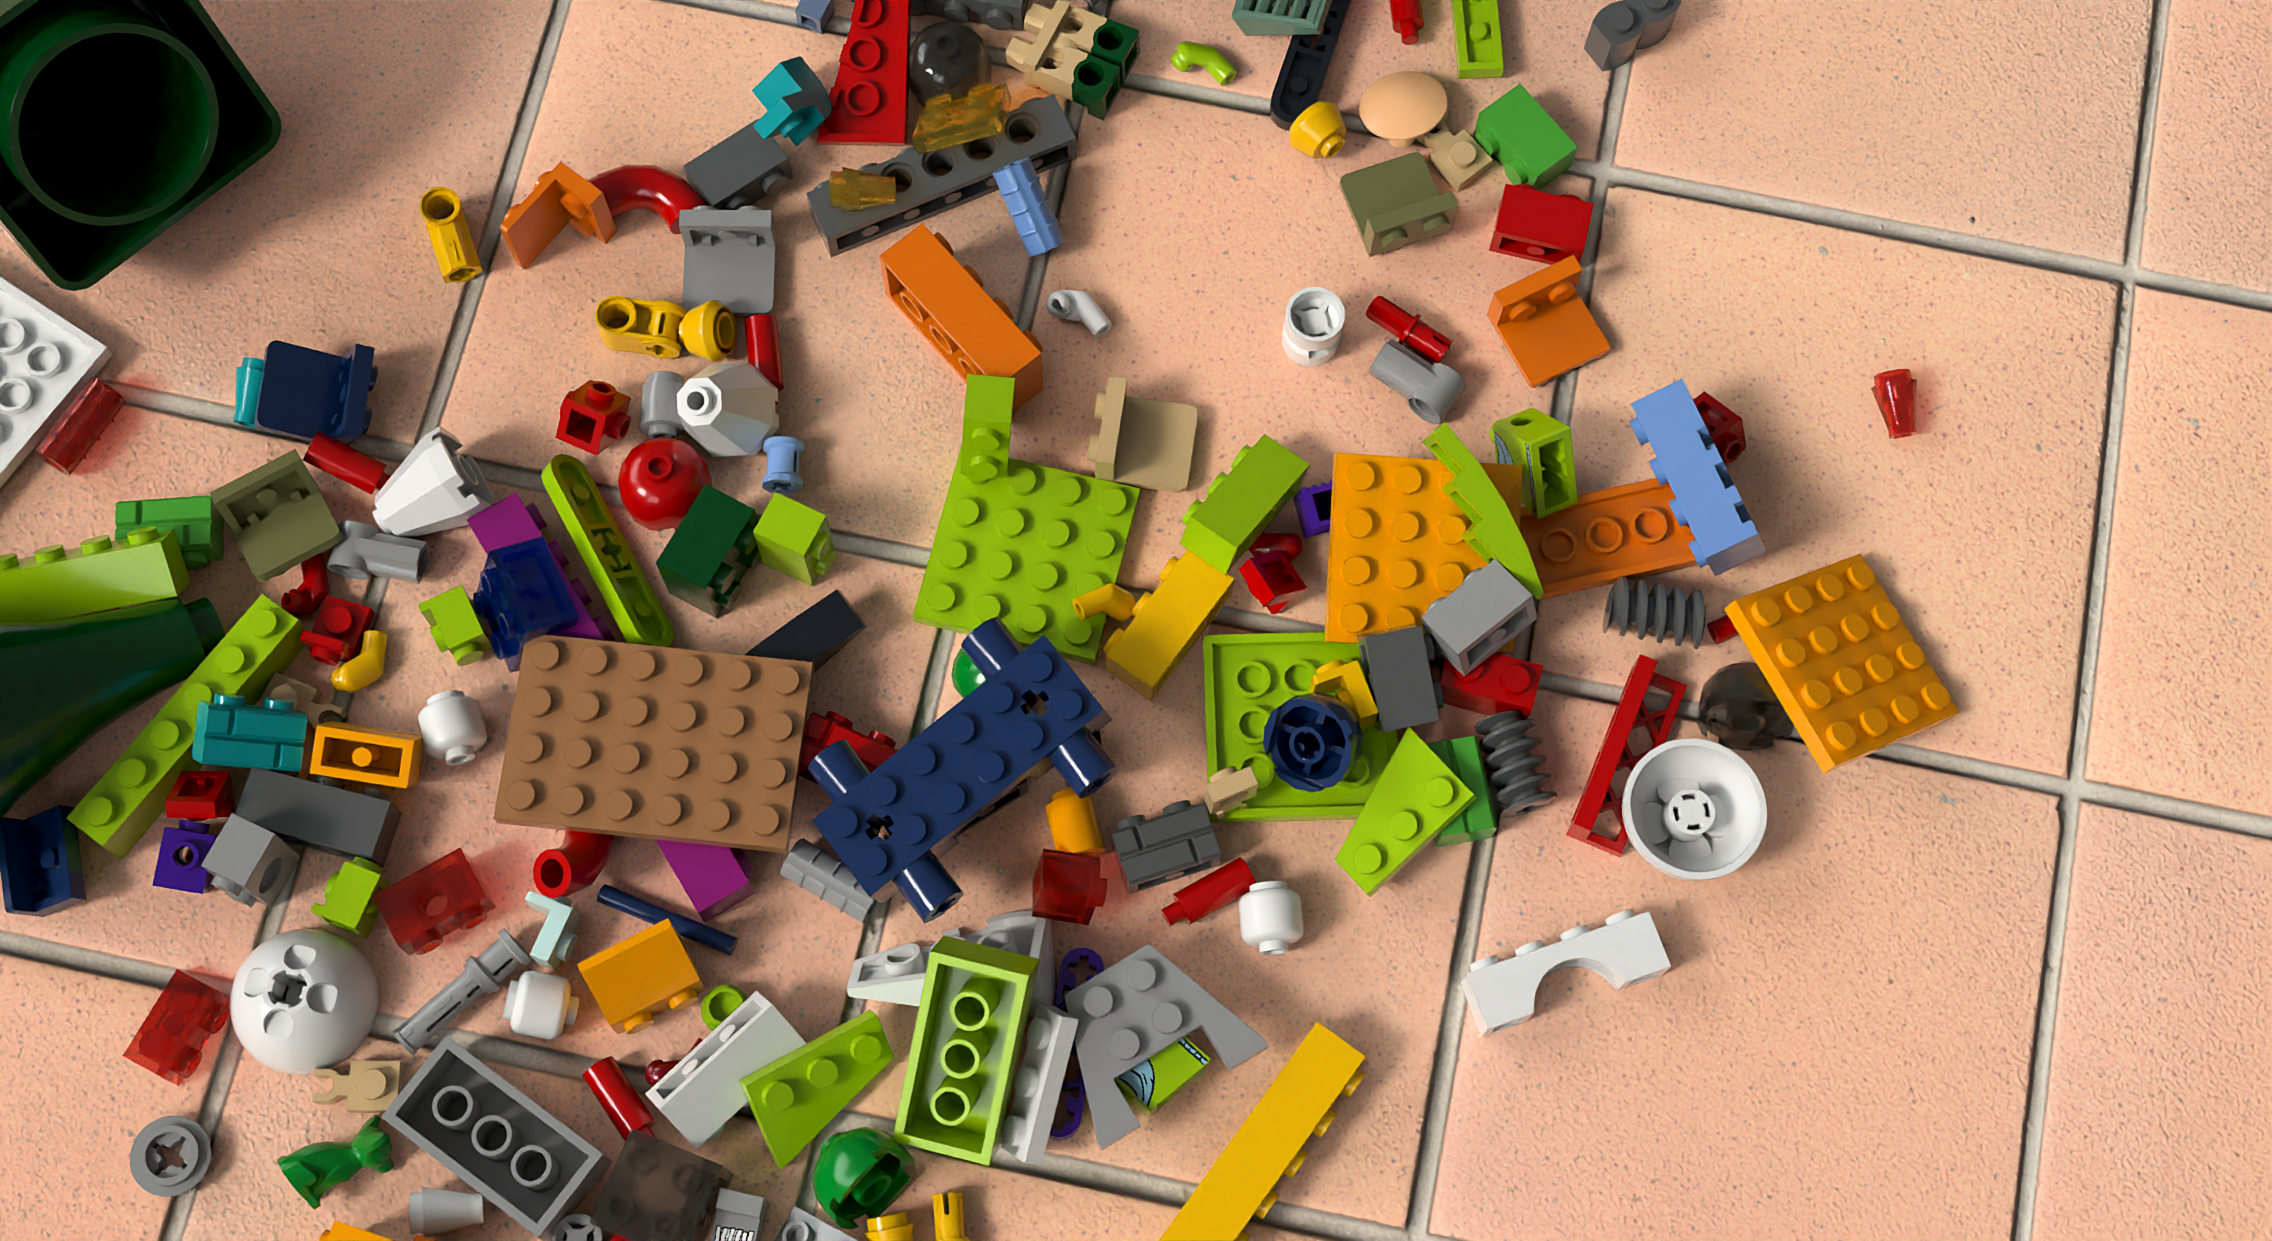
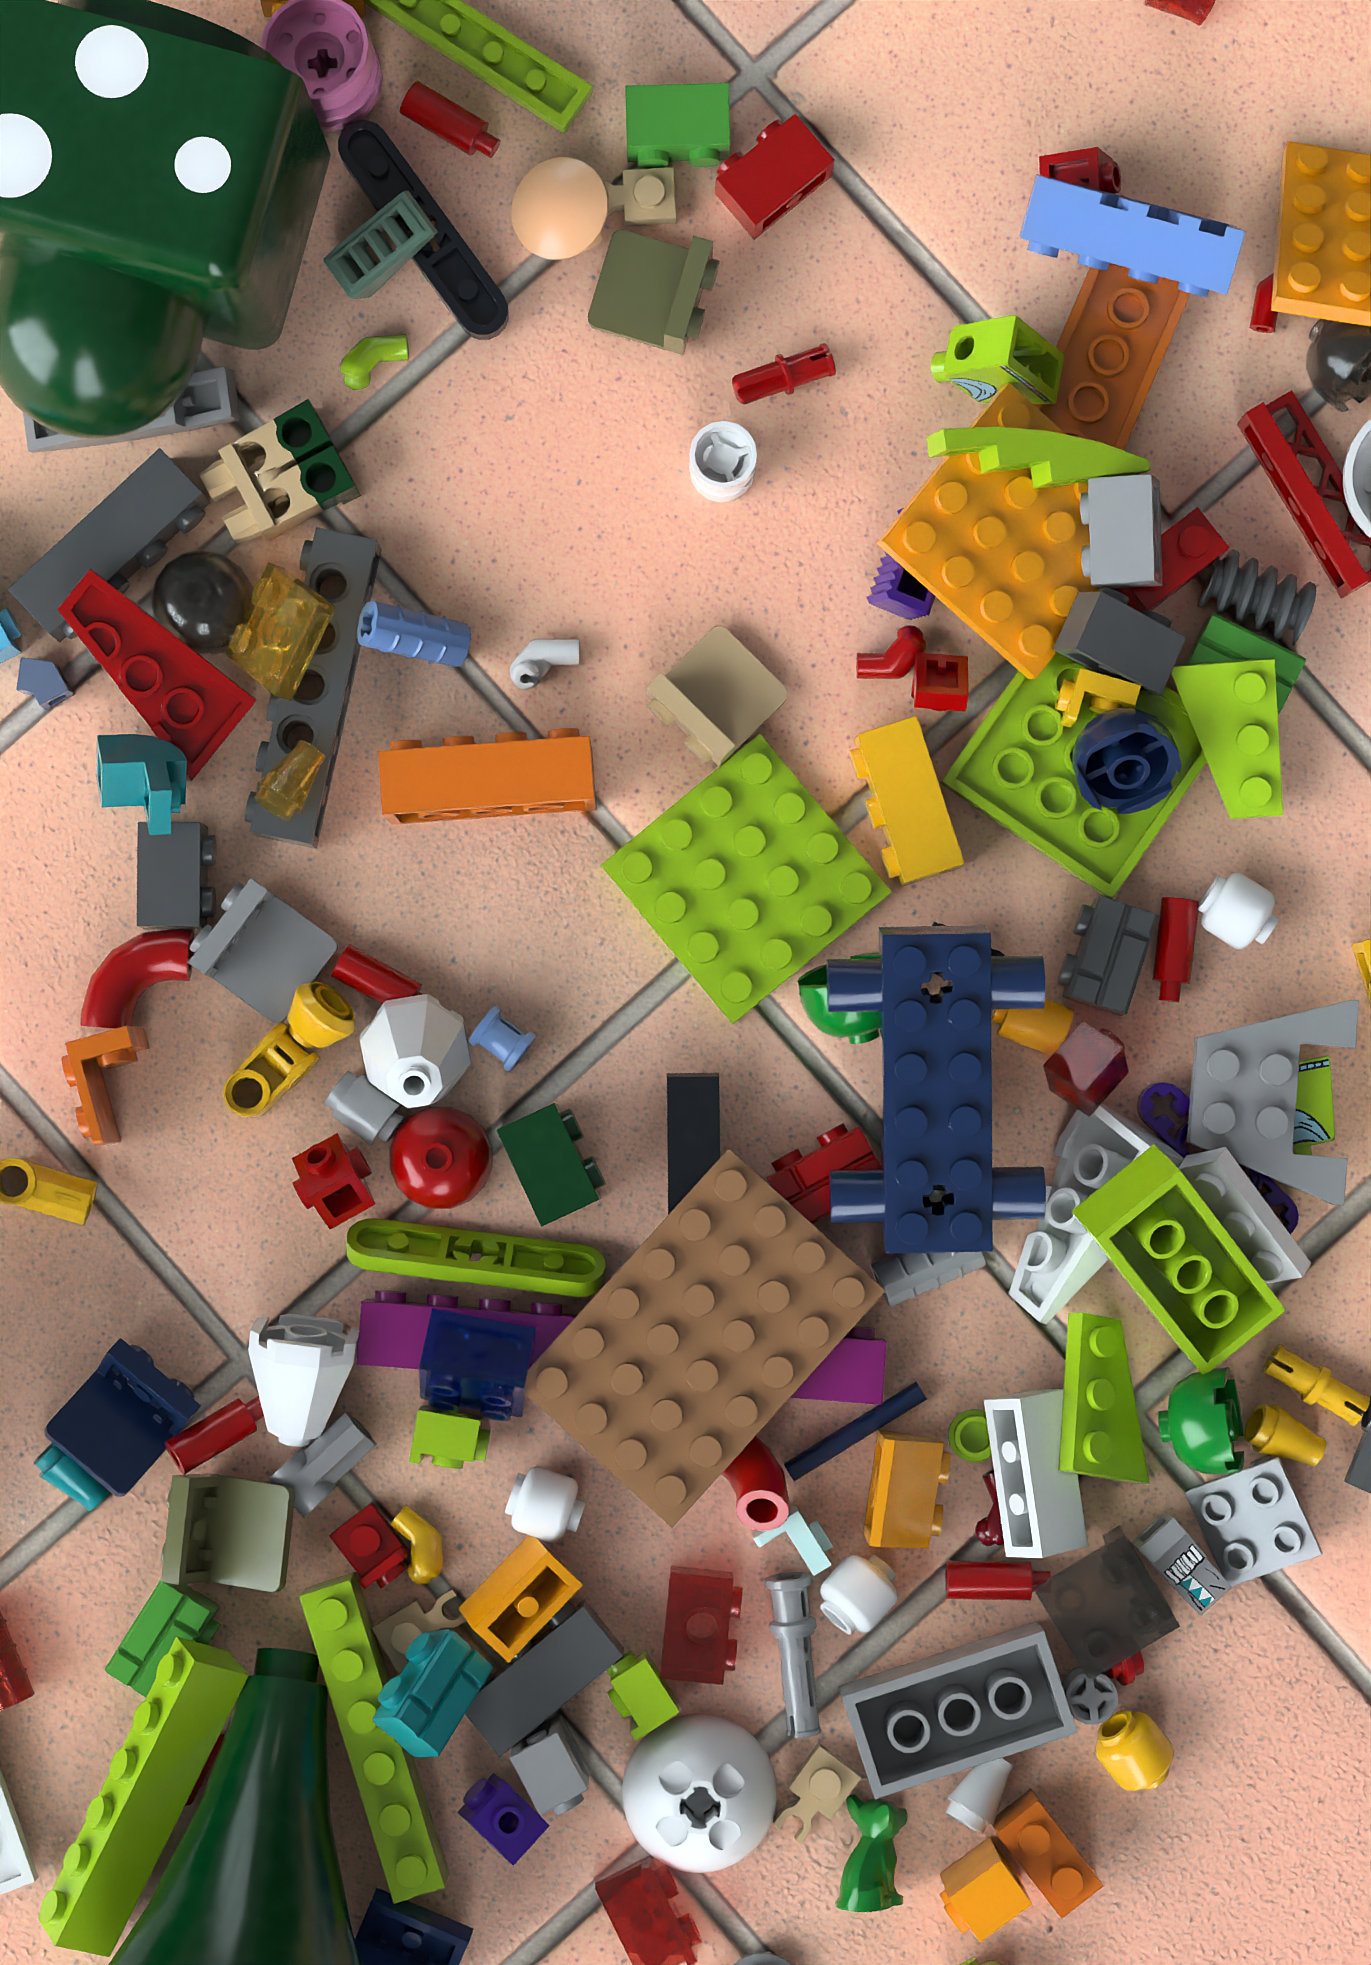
camera: 55 degrees left, 15 degrees up
(201, 796) = (455, 1773): red bracket -> none
(312, 591) = (313, 1549): red arm -> none
(795, 539) = (594, 1080): lime brick -> none
(987, 426) = (619, 834): lime brick -> none
(1107, 599) = (850, 841): yellow arm -> none
(1229, 790) = (1117, 868): tan plate -> none
(1242, 503) = (850, 654): lime brick -> none
(1318, 131) = (529, 306): yellow cone -> none
(1427, 387) = (853, 402): light grey piece -> none
(1547, 323) = (876, 247): orange bracket -> none
(1656, 611) = (1209, 363): dark grey piece -> none

